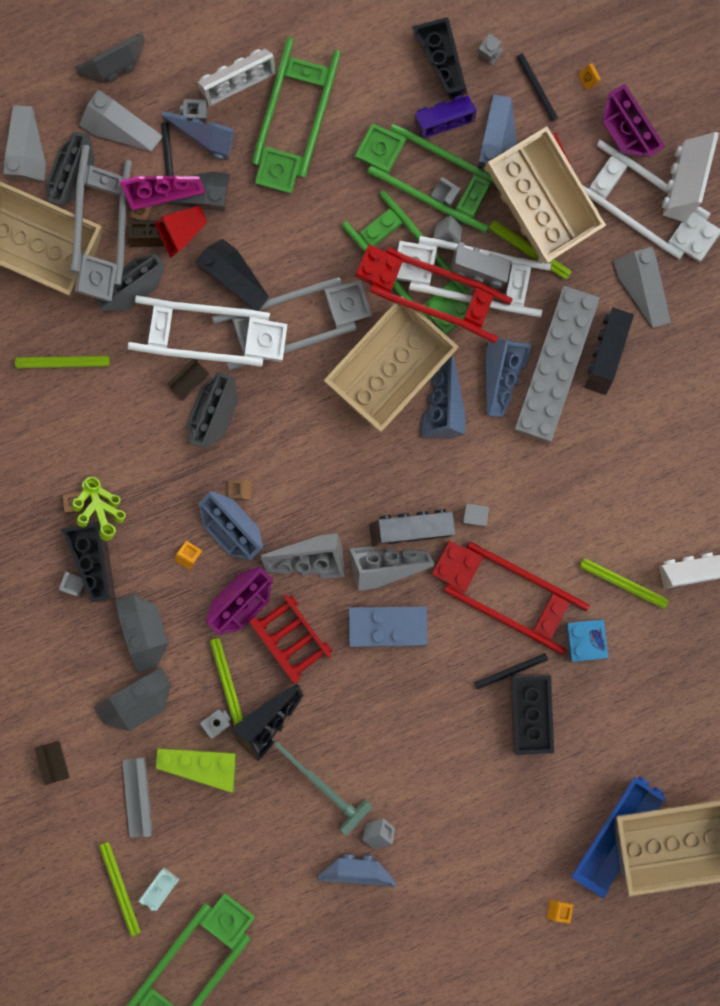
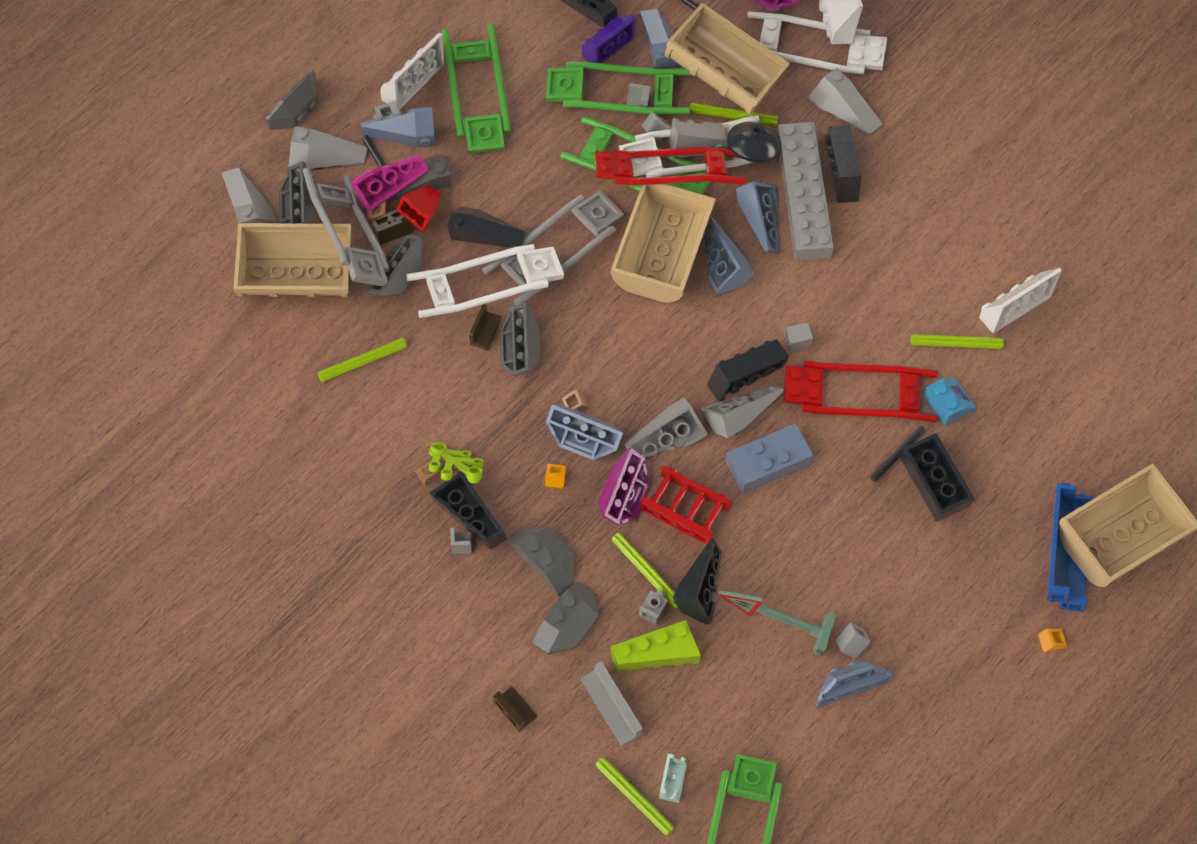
camera: 25 degrees left, 20 degrees down
(525, 302) = (754, 141): none -> black dish

